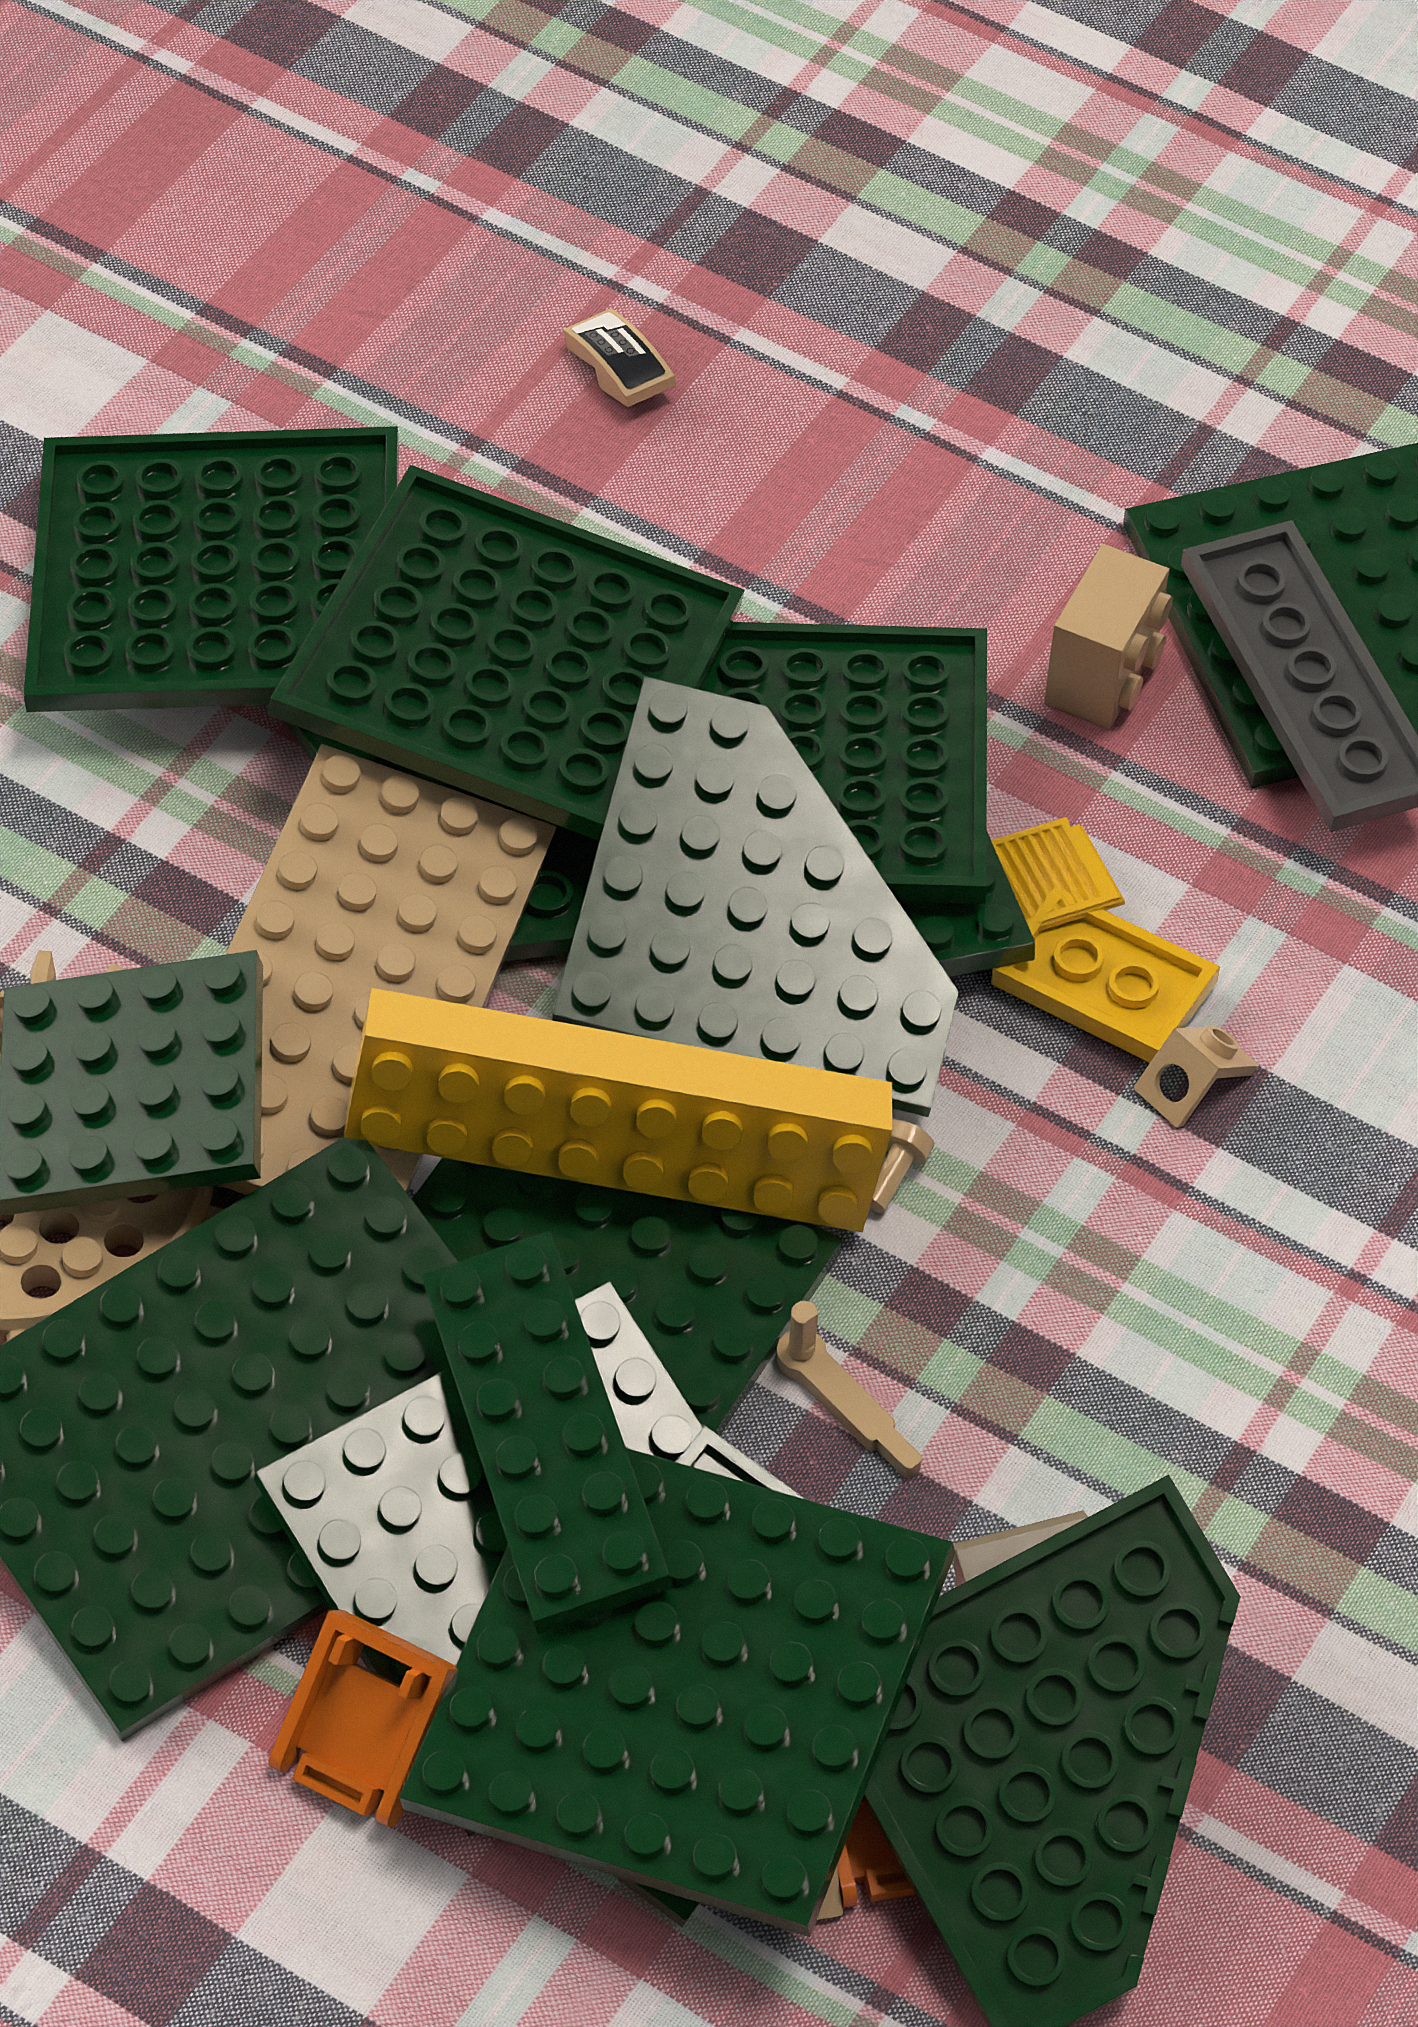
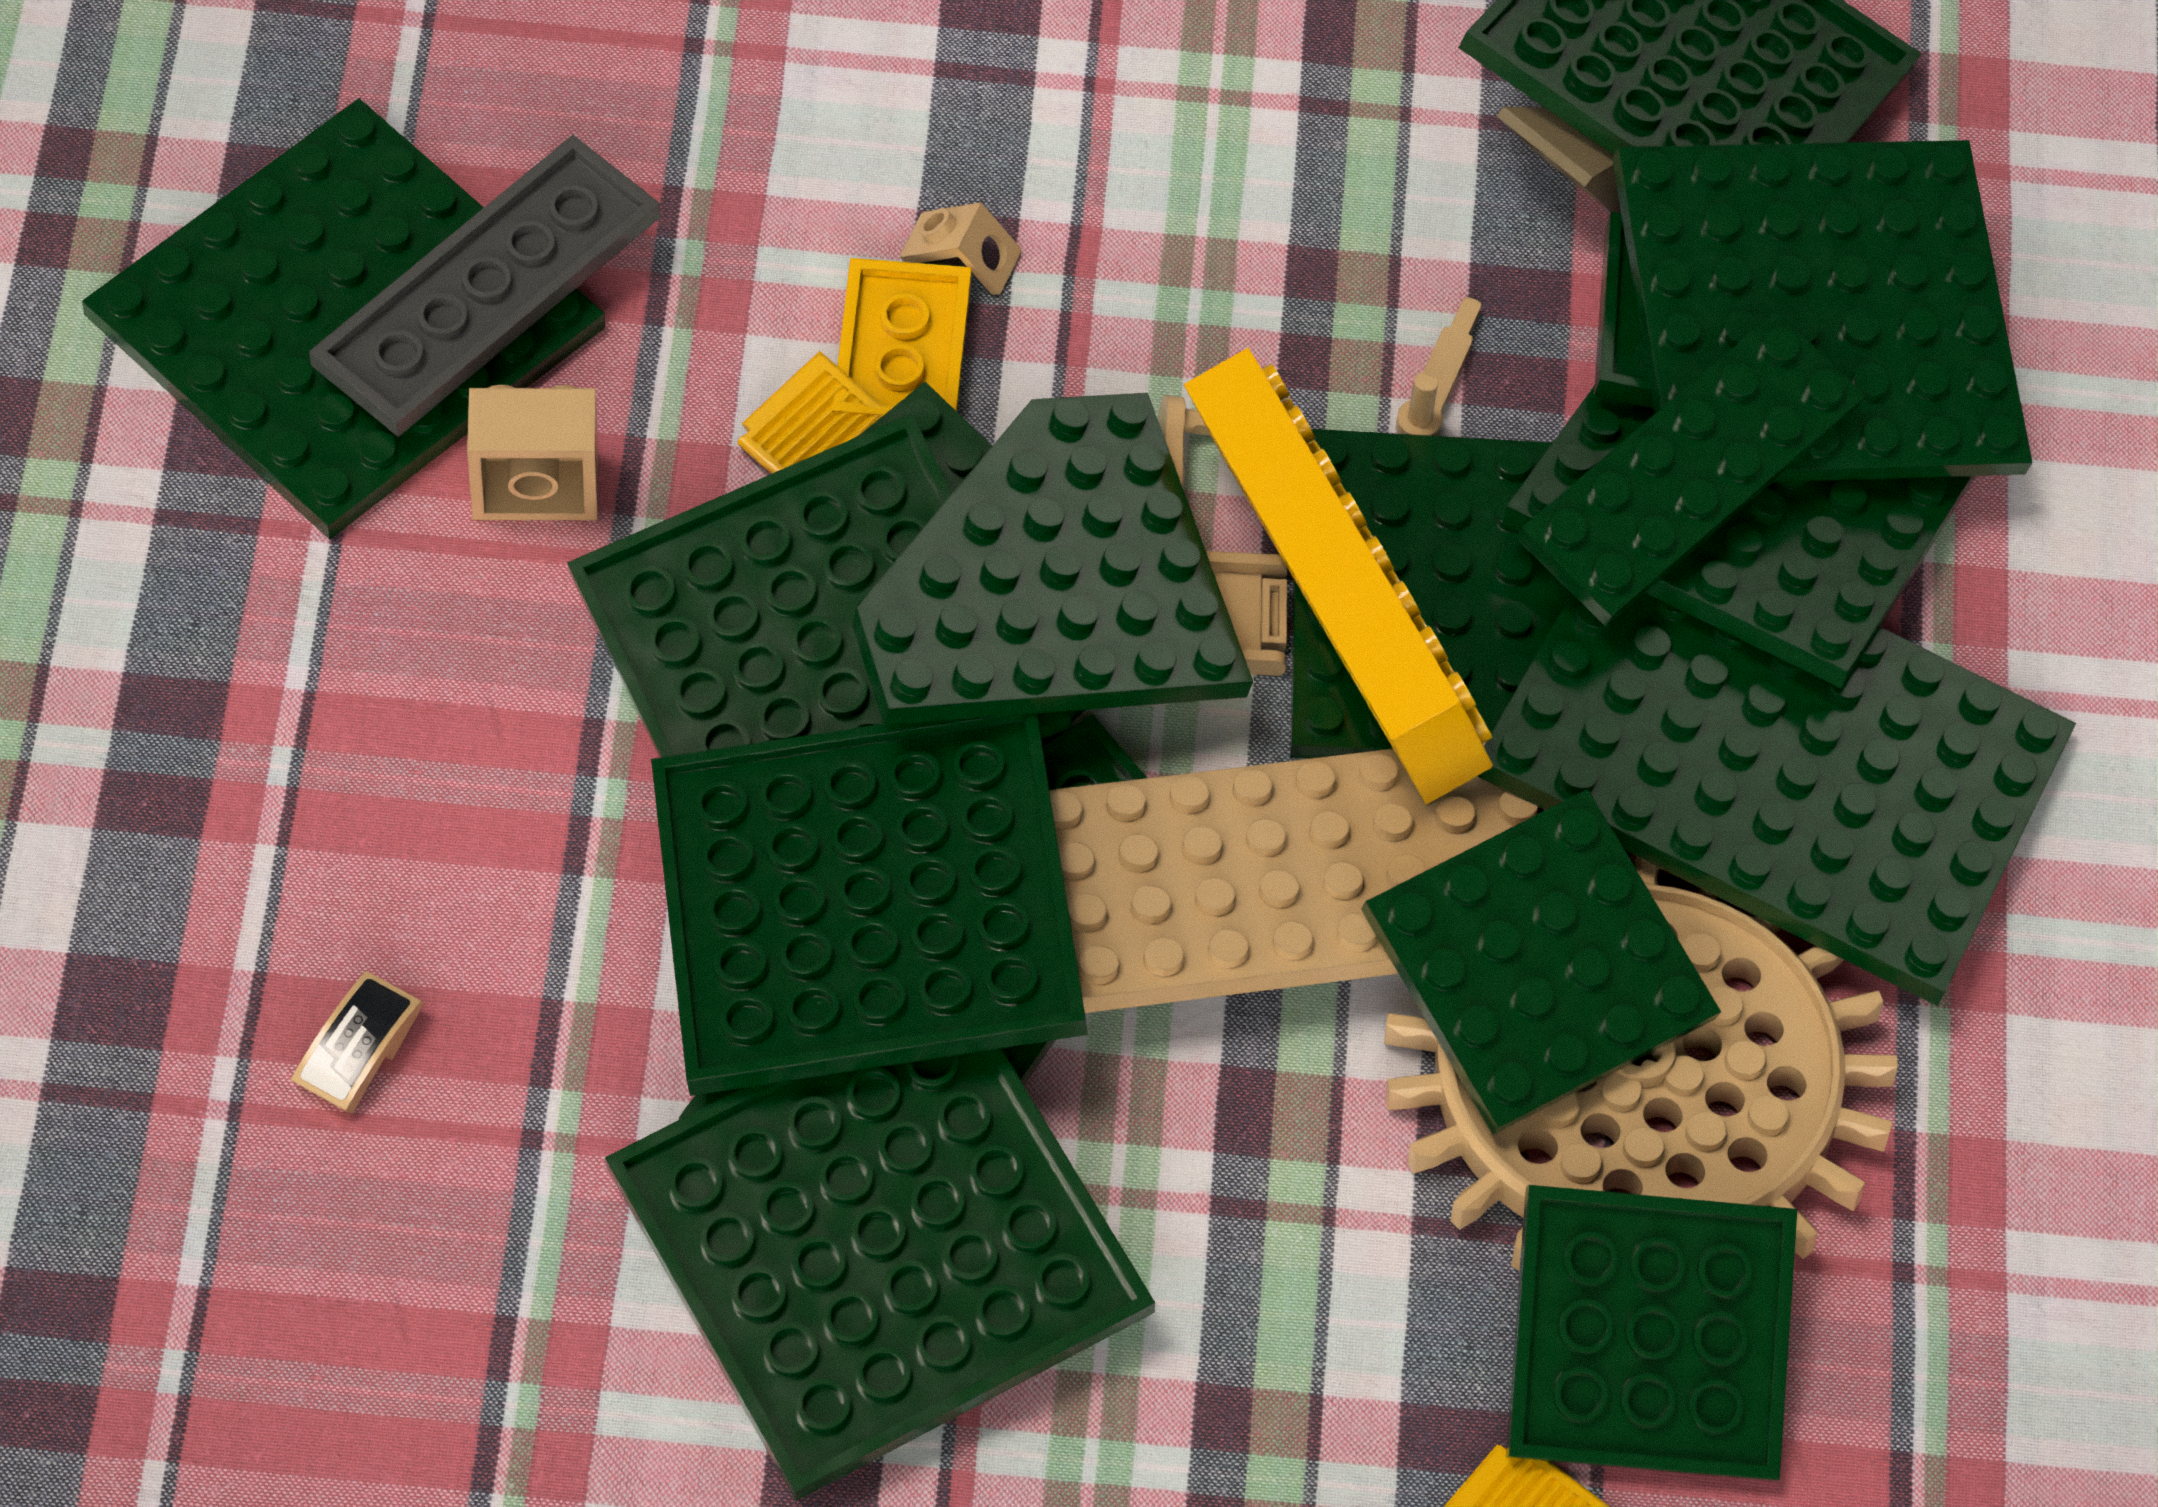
camera: 120 degrees left, 5 degrees up
(356, 1723) = (1957, 540): orange container -> none

